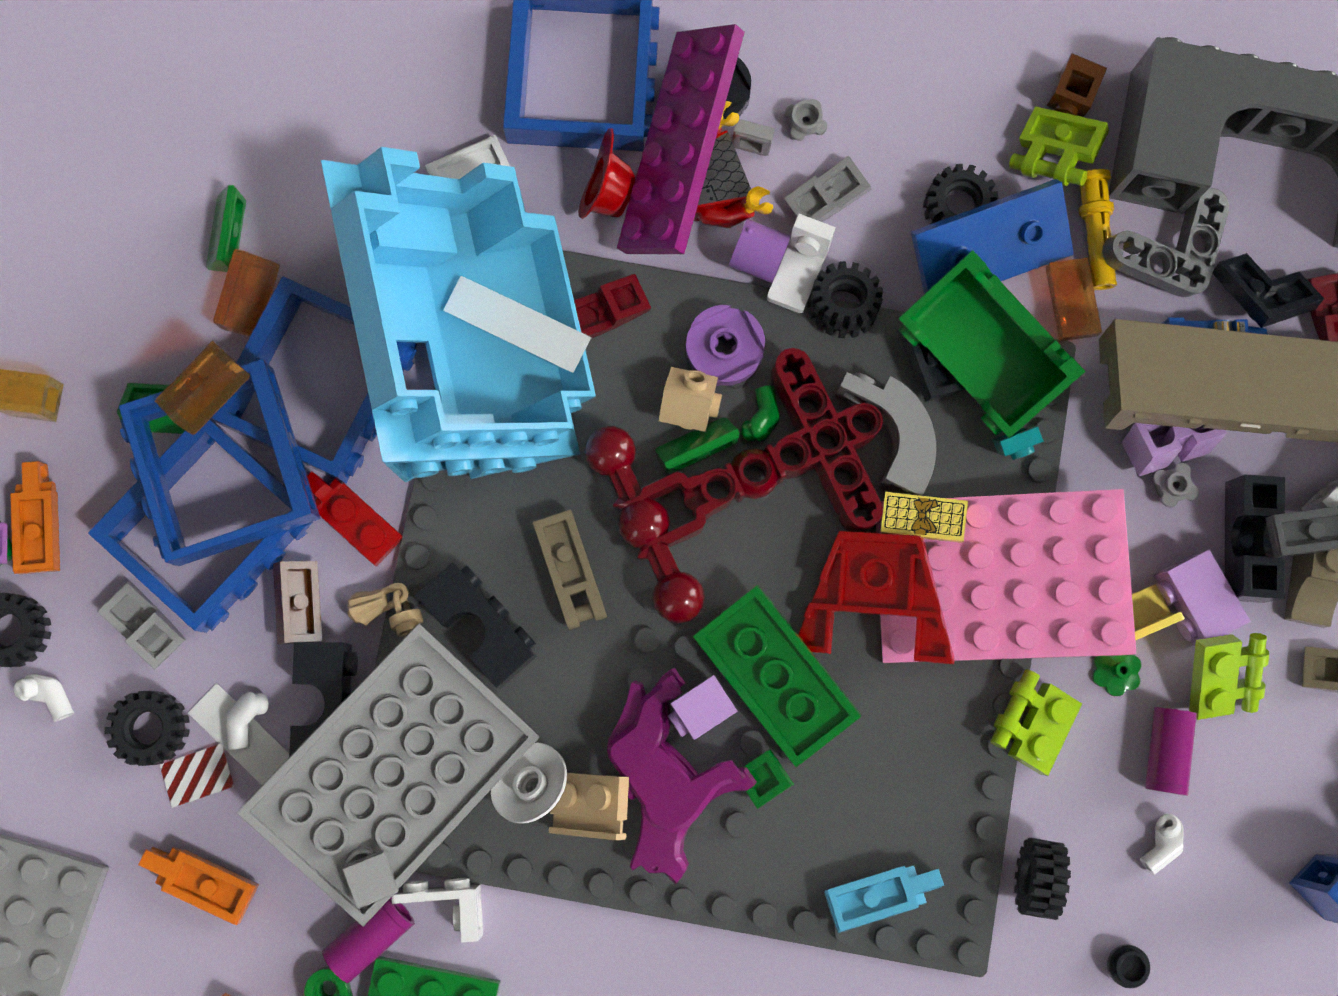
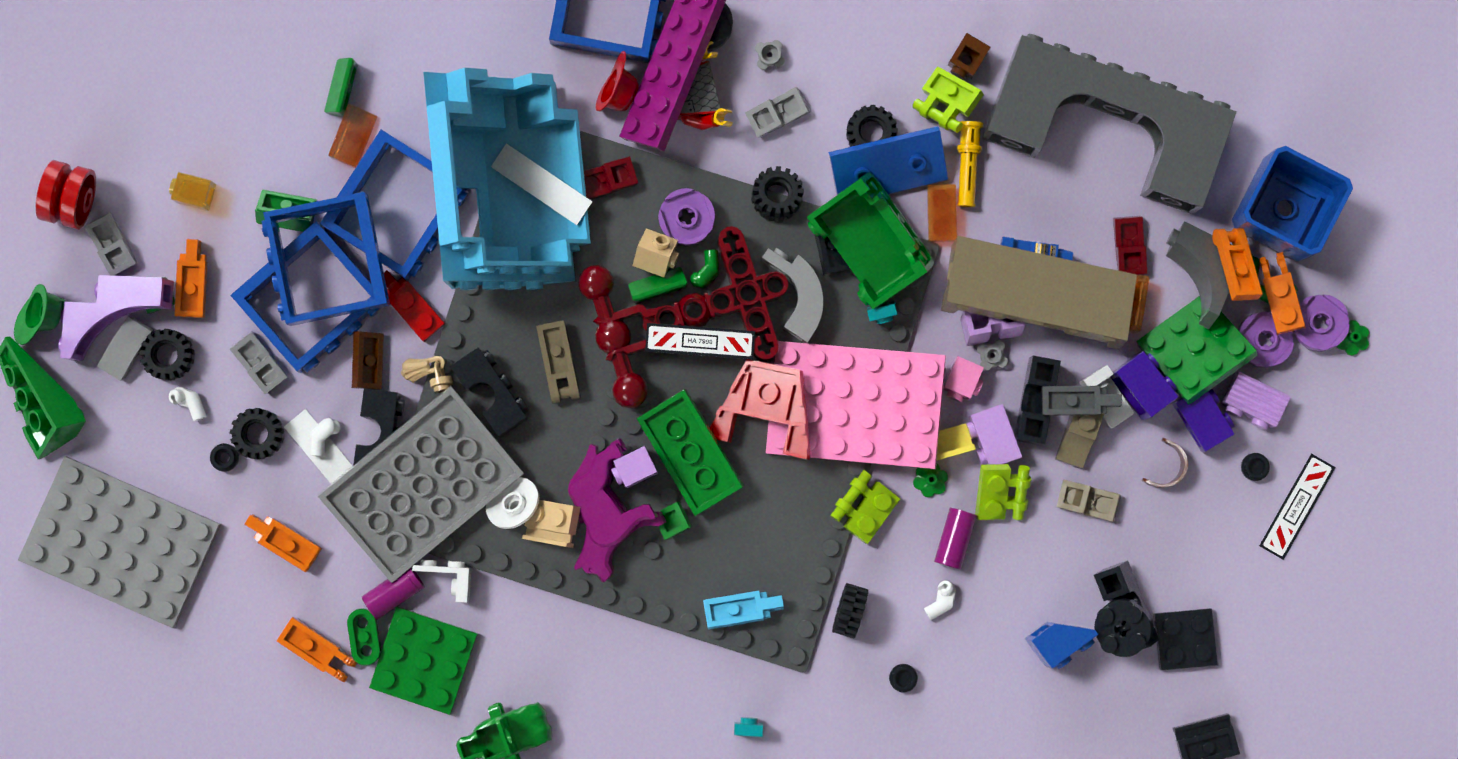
camera: 10 degrees right, 5 degrees up
(91, 769) = (216, 454): none -> black plate
(196, 775) = (286, 470): sticker -> none
(202, 388) = (321, 207): clear orange slope -> none
(370, 879) = (400, 552): light grey tile -> none
(468, 158) = (521, 60): white tile -> none
(753, 137) = (728, 65): light grey tile -> none
(759, 250) = (720, 150): medium lavender piece -> none
(770, 513) = (700, 341): none -> sticker
(801, 263) = (748, 165): white bracket -> none
(924, 516) = (806, 357): tile -> none
(1147, 522) = (963, 380): none -> bright pink brick
(1174, 261) = (1028, 191): dark grey beam -> none
(1263, 298) = (1080, 231): black plate -> none

